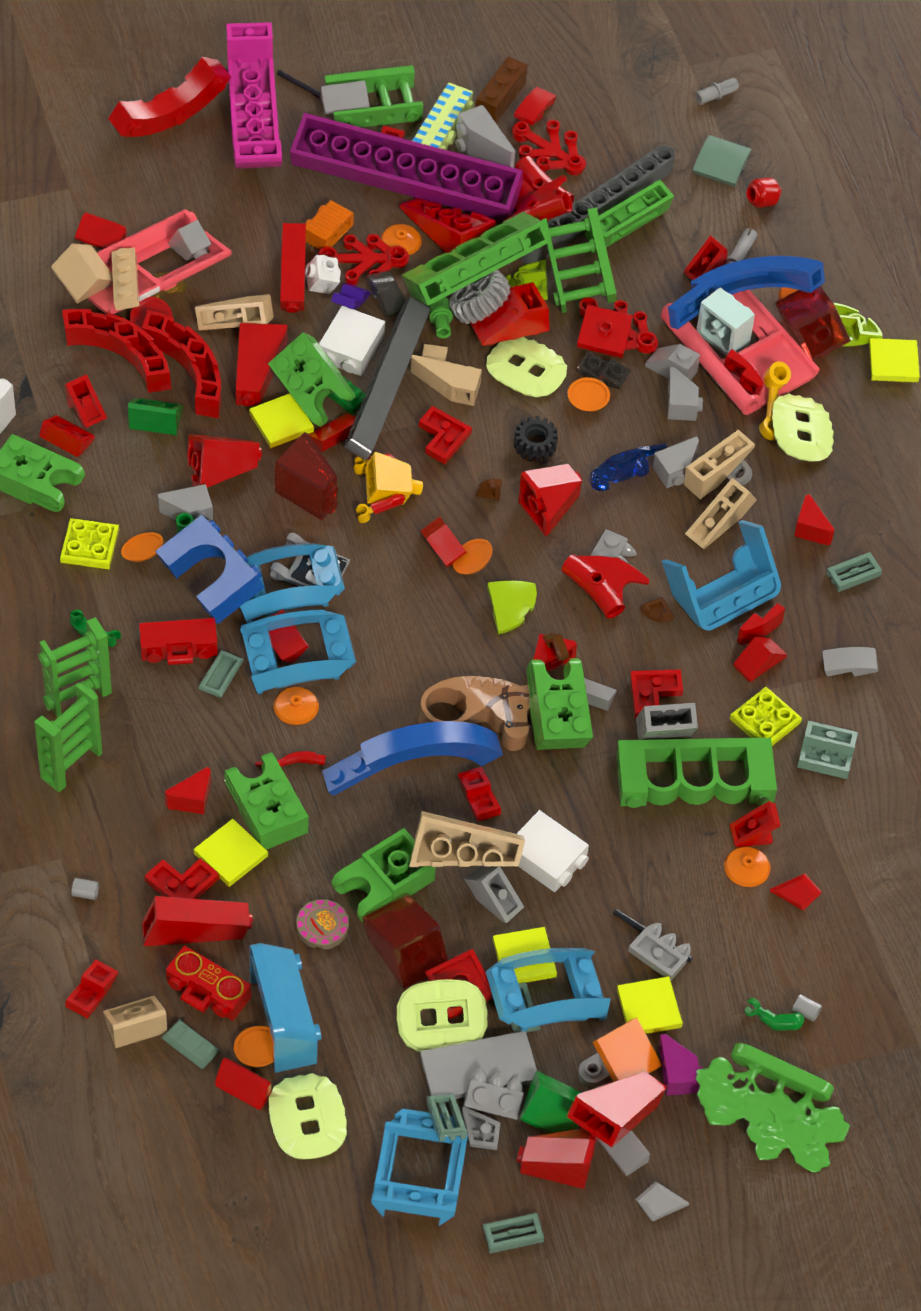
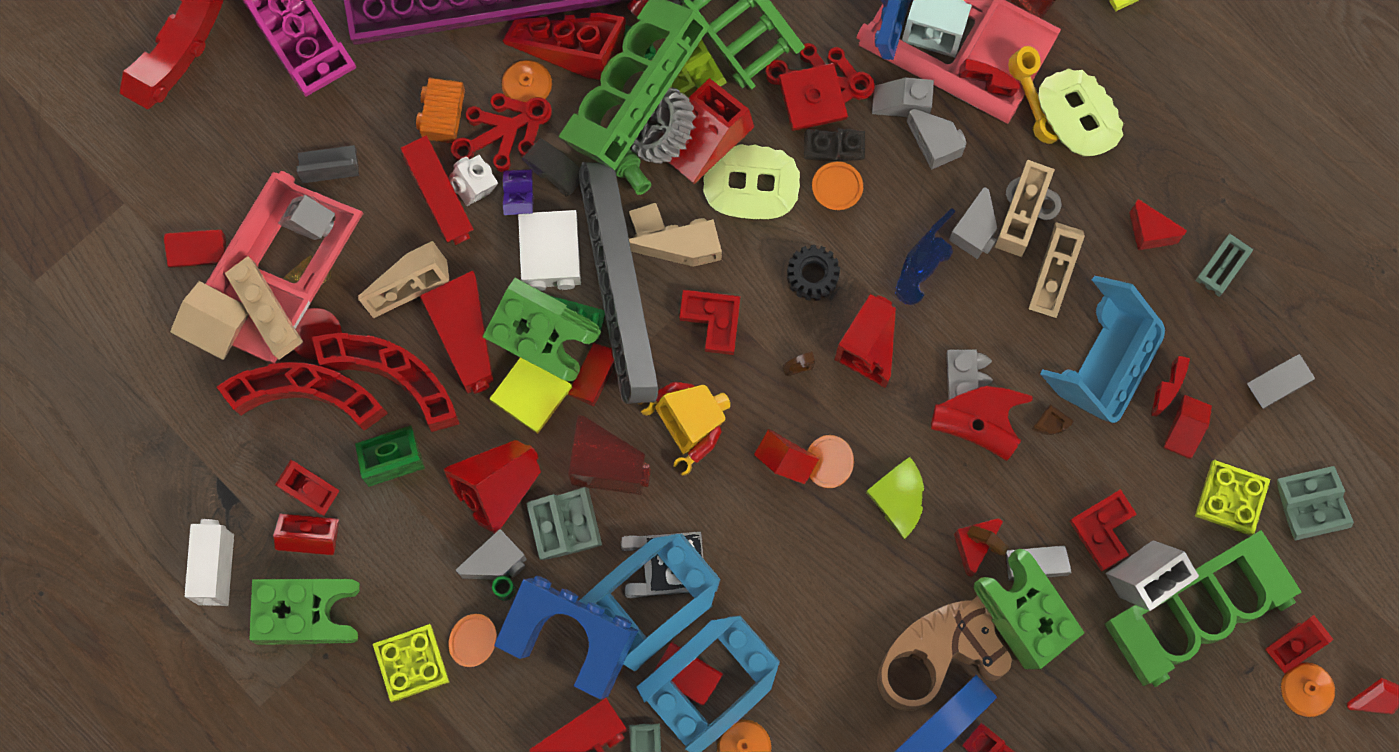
camera: 25 degrees left, 20 degrees up
(226, 225) = (328, 164): none -> dark grey panel
(254, 510) = (564, 524): none -> sand green slope

